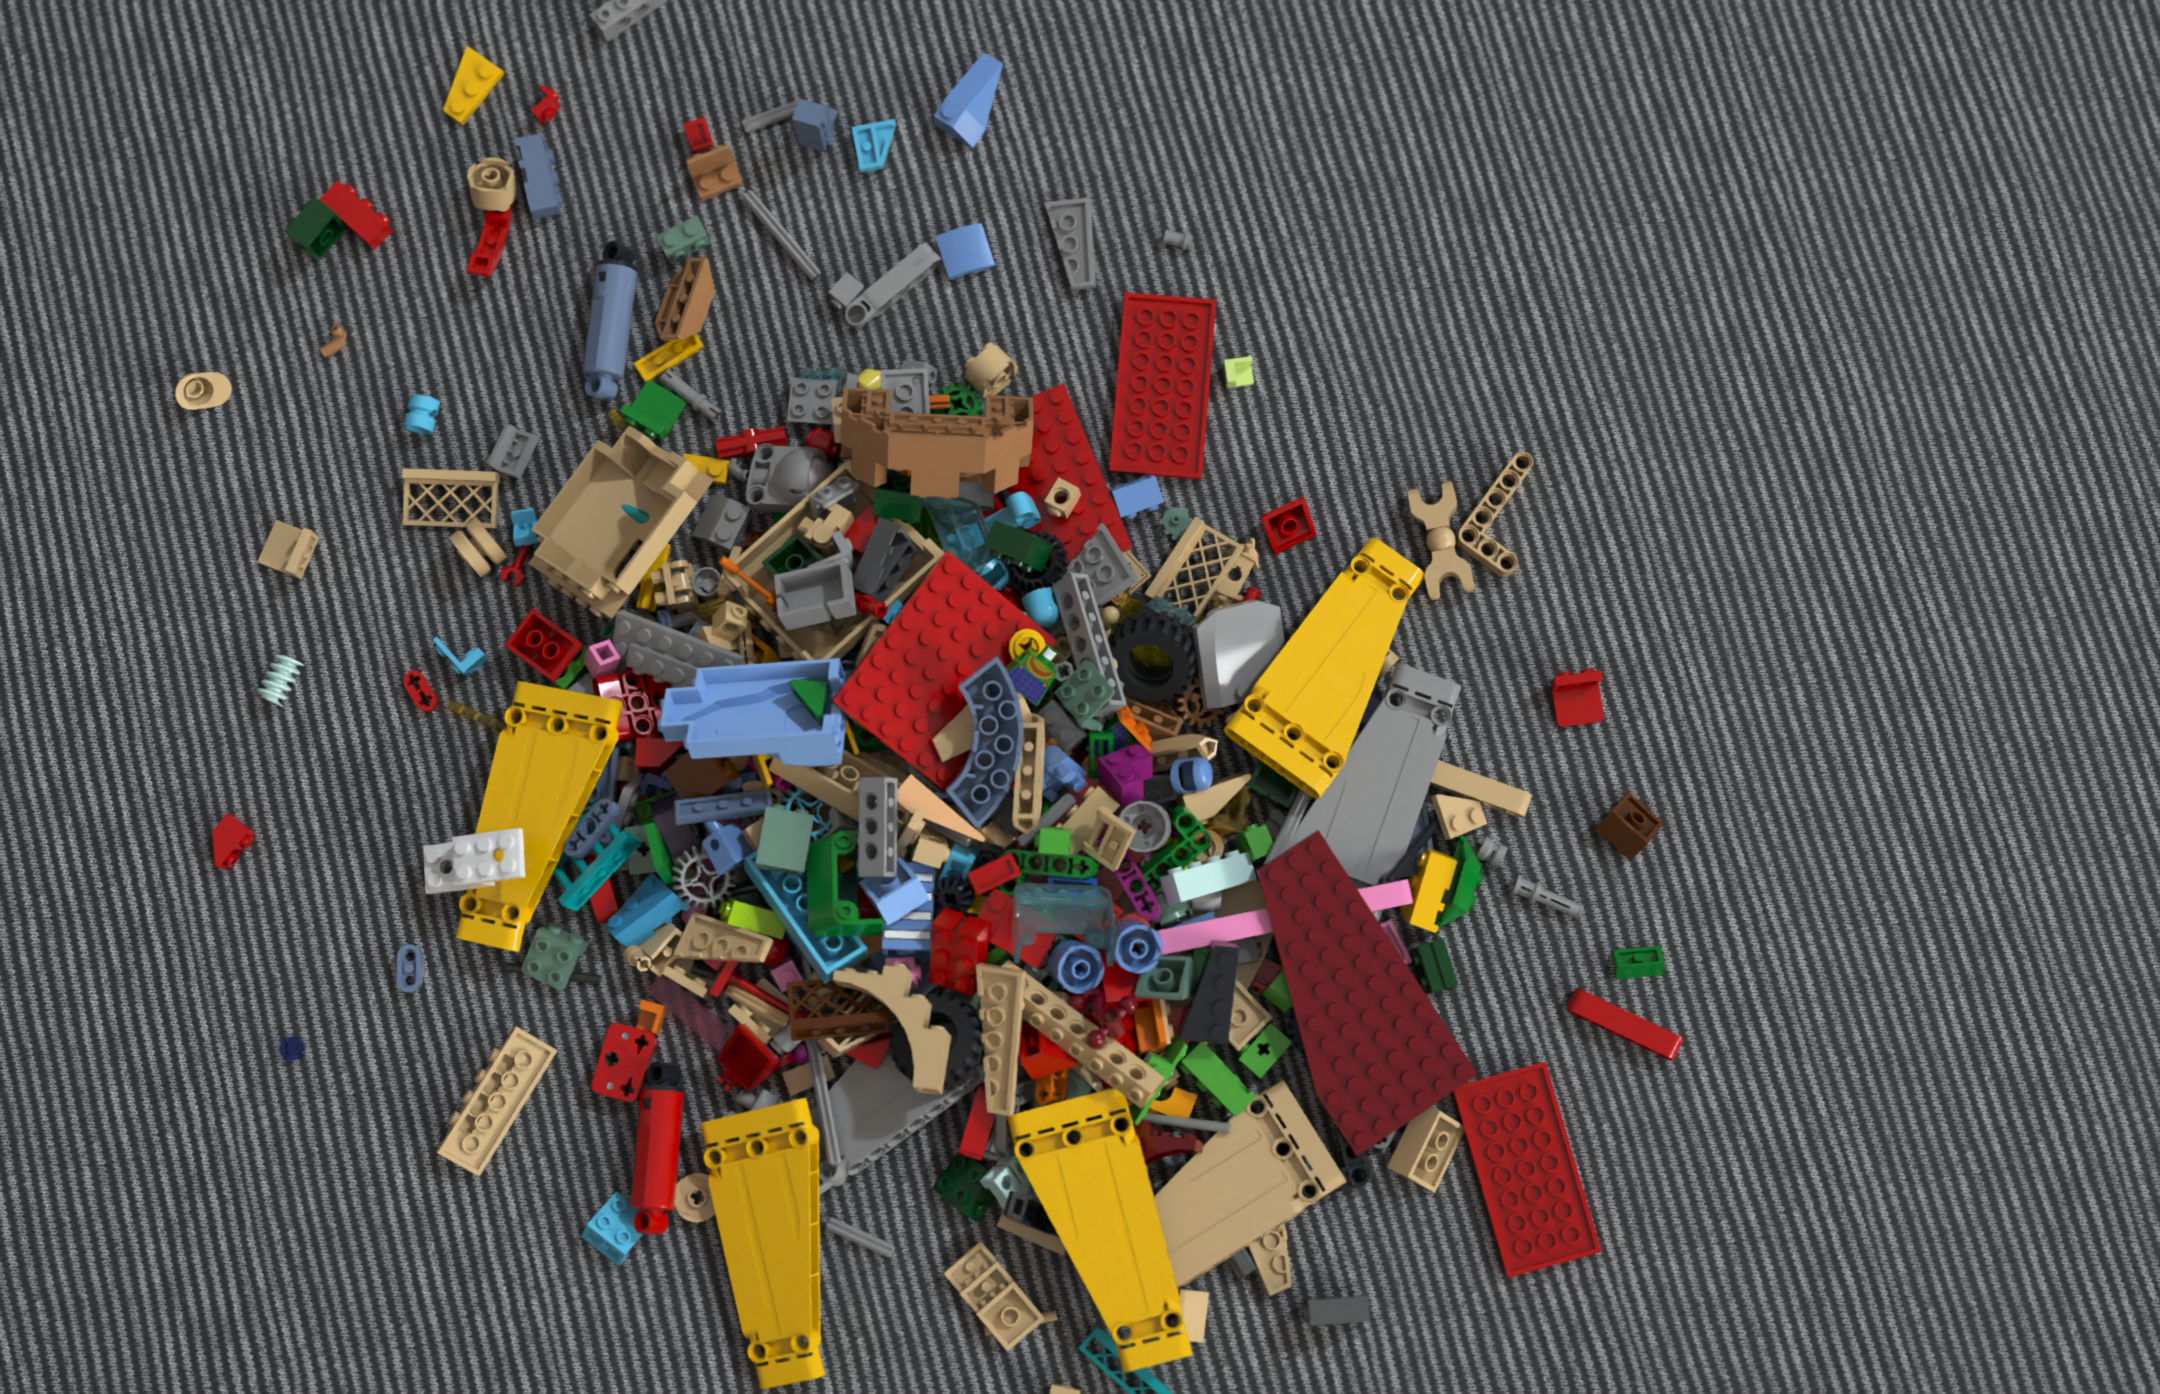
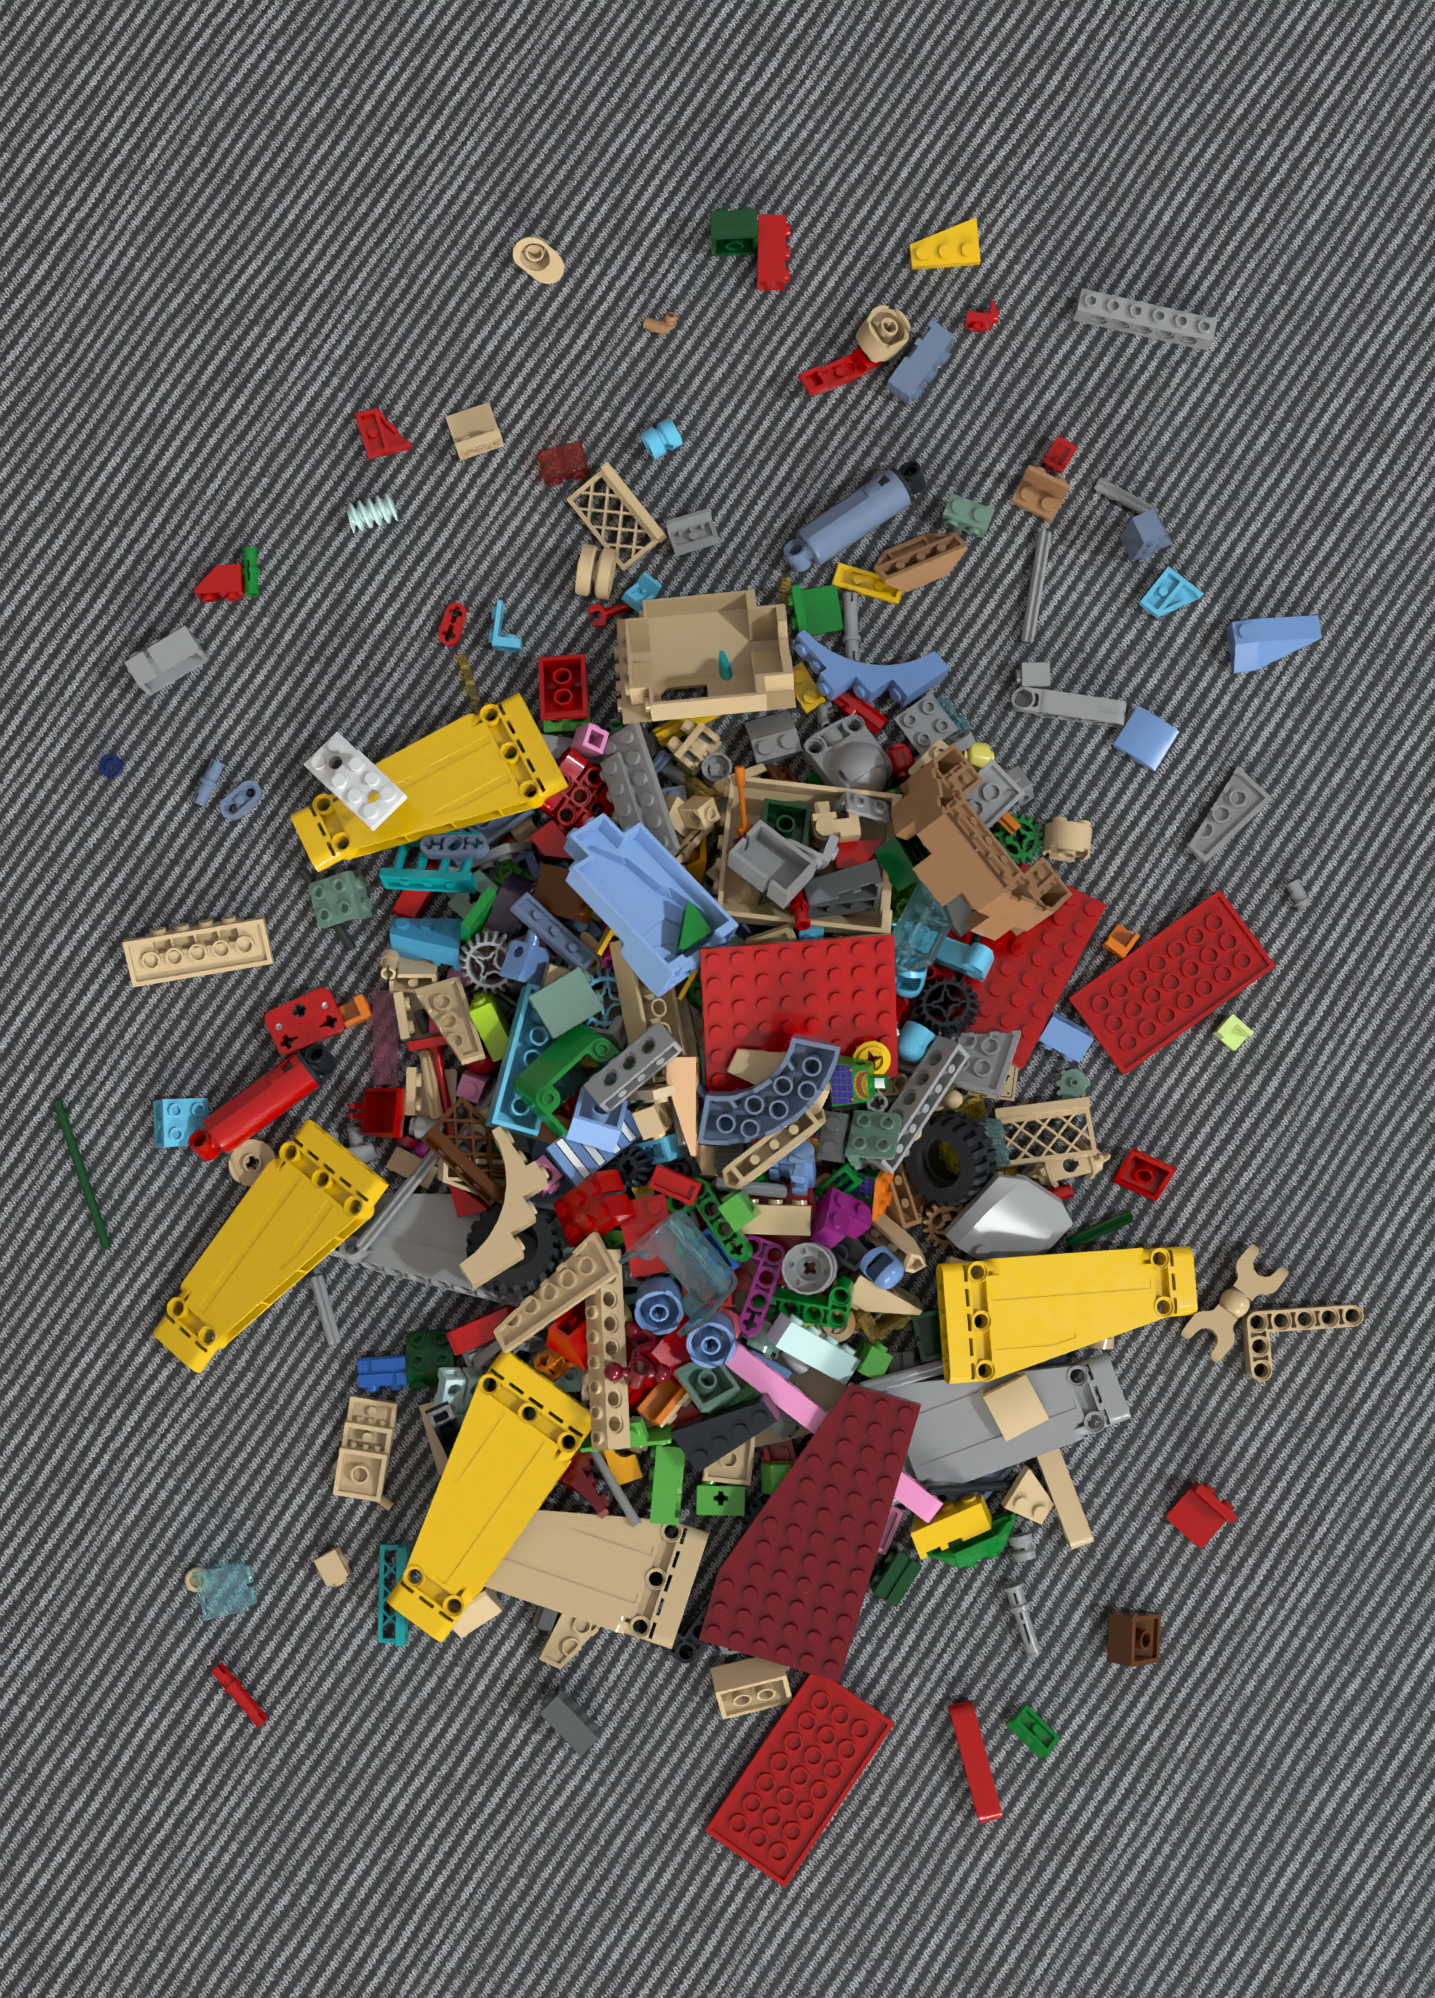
camera: 45 degrees right, 5 degrees up
(225, 623) = (379, 435): none -> red wing
(240, 811) = (250, 571): none -> green pin
(250, 932) = (166, 660): none -> light grey piece
(373, 503) = (563, 463): none -> clear red brick
(373, 982) = (208, 782): none -> sand blue pin
(532, 1320) = (62, 1117): none -> dark green bar
(742, 415) = (869, 680): none -> medium blue arch
(946, 1231) = (382, 1371): none -> blue brick
(1017, 547) = (943, 984): dark green brick -> none
(1060, 489) = (1021, 976): tan brick -> none
(1100, 397) = (1120, 941): none -> orange panel
(1114, 842) = (778, 1257): tan plate -> none
(1302, 594) = (1099, 1229): none -> dark green axle
(1380, 763) = (1015, 1407): none -> tan slope

